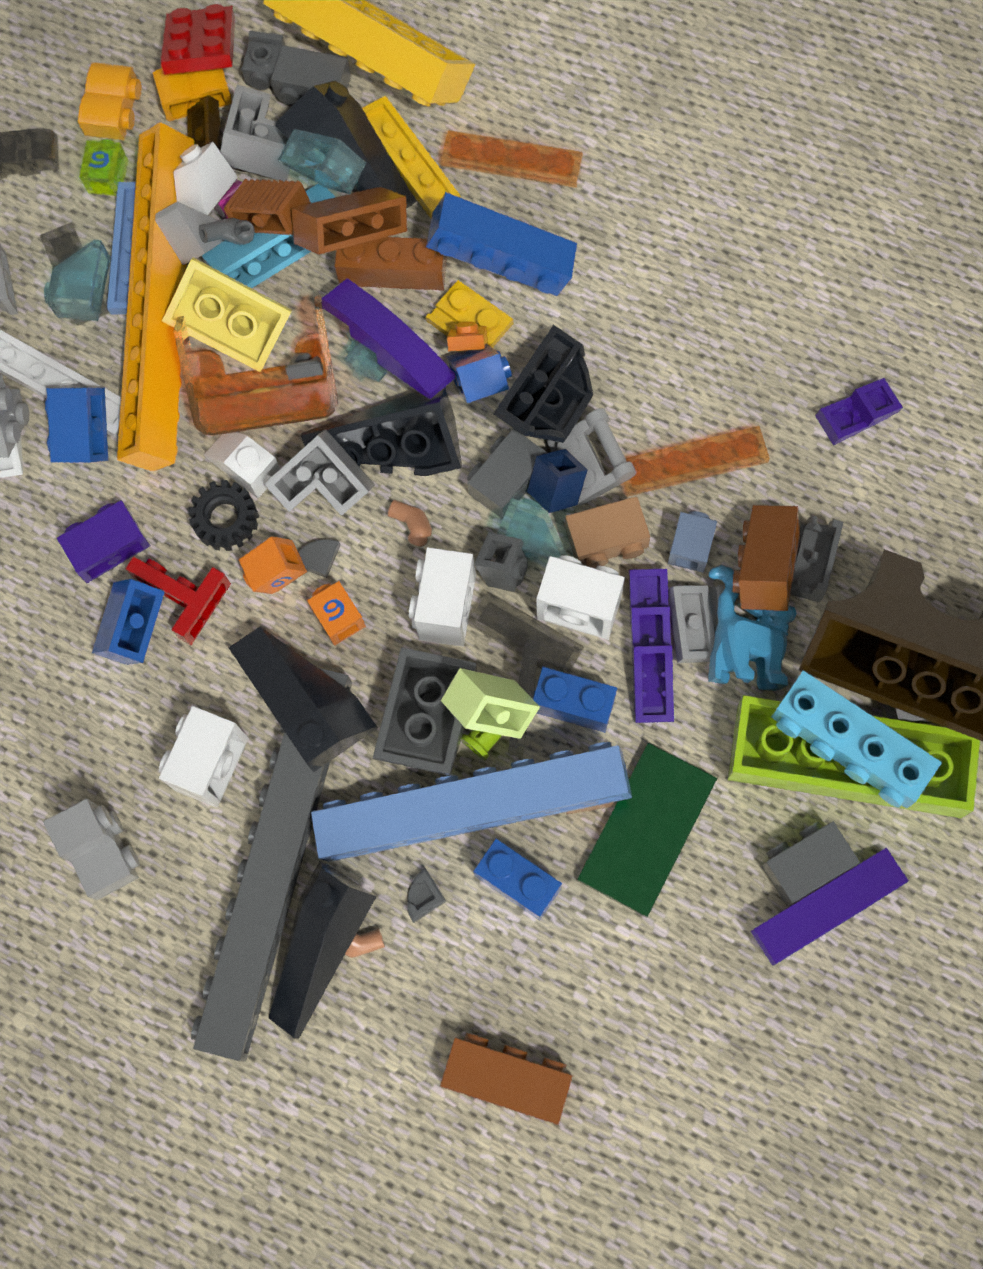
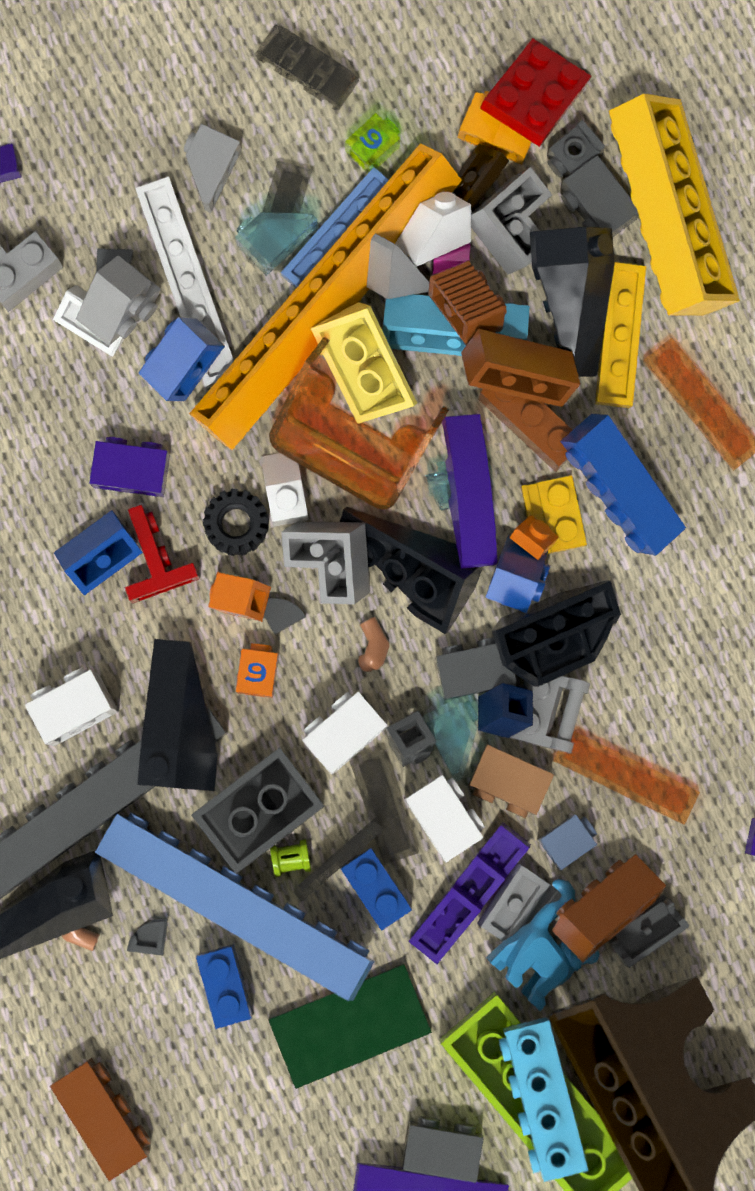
camera: 30 degrees right, 10 degrees up
(109, 101) = (423, 84): light orange brick -> none
(229, 229) = (421, 294): dark grey arm -> none
(304, 366) = (391, 455): dark grey tile -> none
(323, 160) = (539, 299): clear light blue slope -> none
(490, 703) = (305, 849): yellowish green brick -> none

